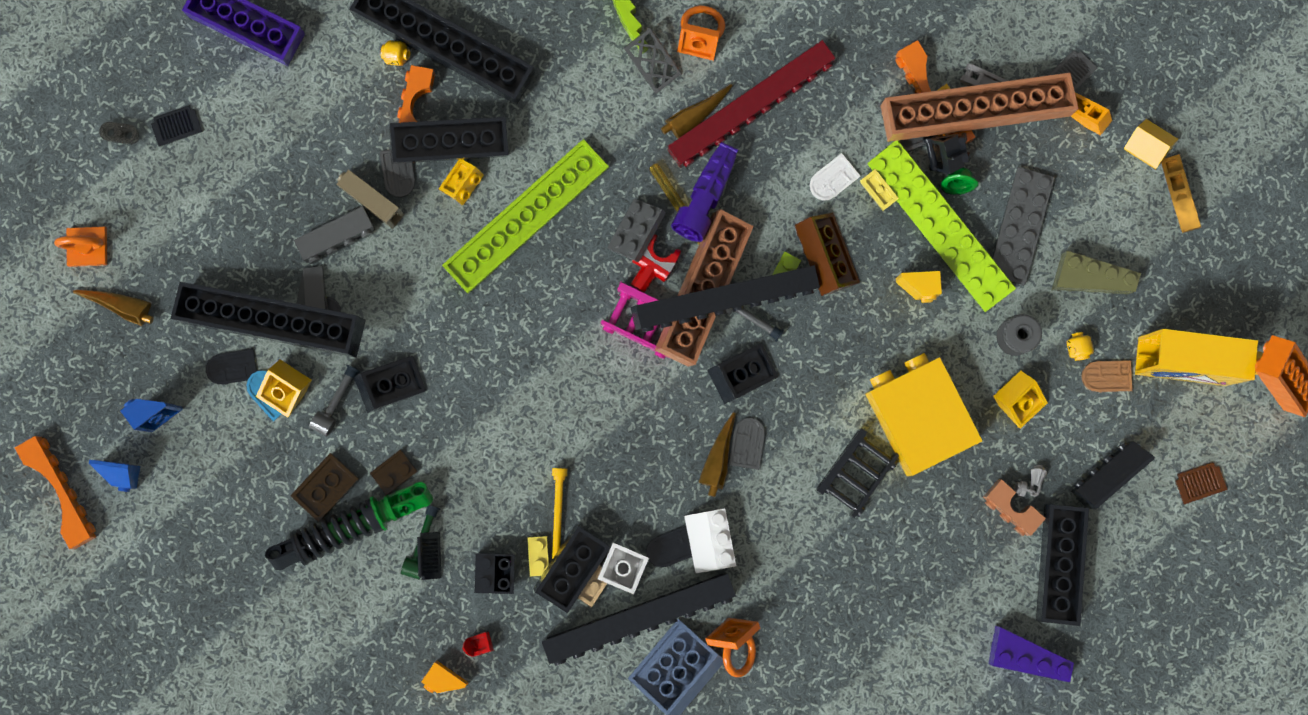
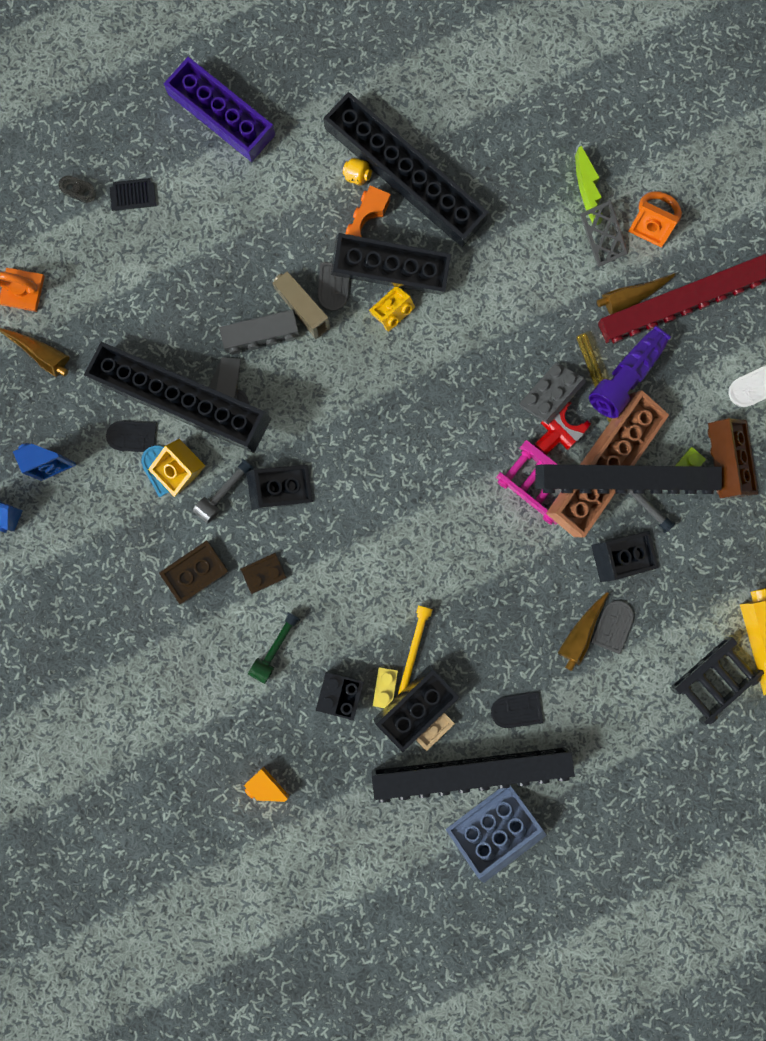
camera: 20 degrees right, 0 degrees up
(351, 526) = (231, 612): black piece -> none
(429, 555) = (279, 663): black window -> none
(478, 645) = (307, 761): red plate -> none
(525, 216) = (447, 355): lime plate -> none
(623, 568) = (467, 721): white slope -> none
(710, 541) = (557, 713): white slope -> none
(733, 635) = (563, 814): orange tile -> none

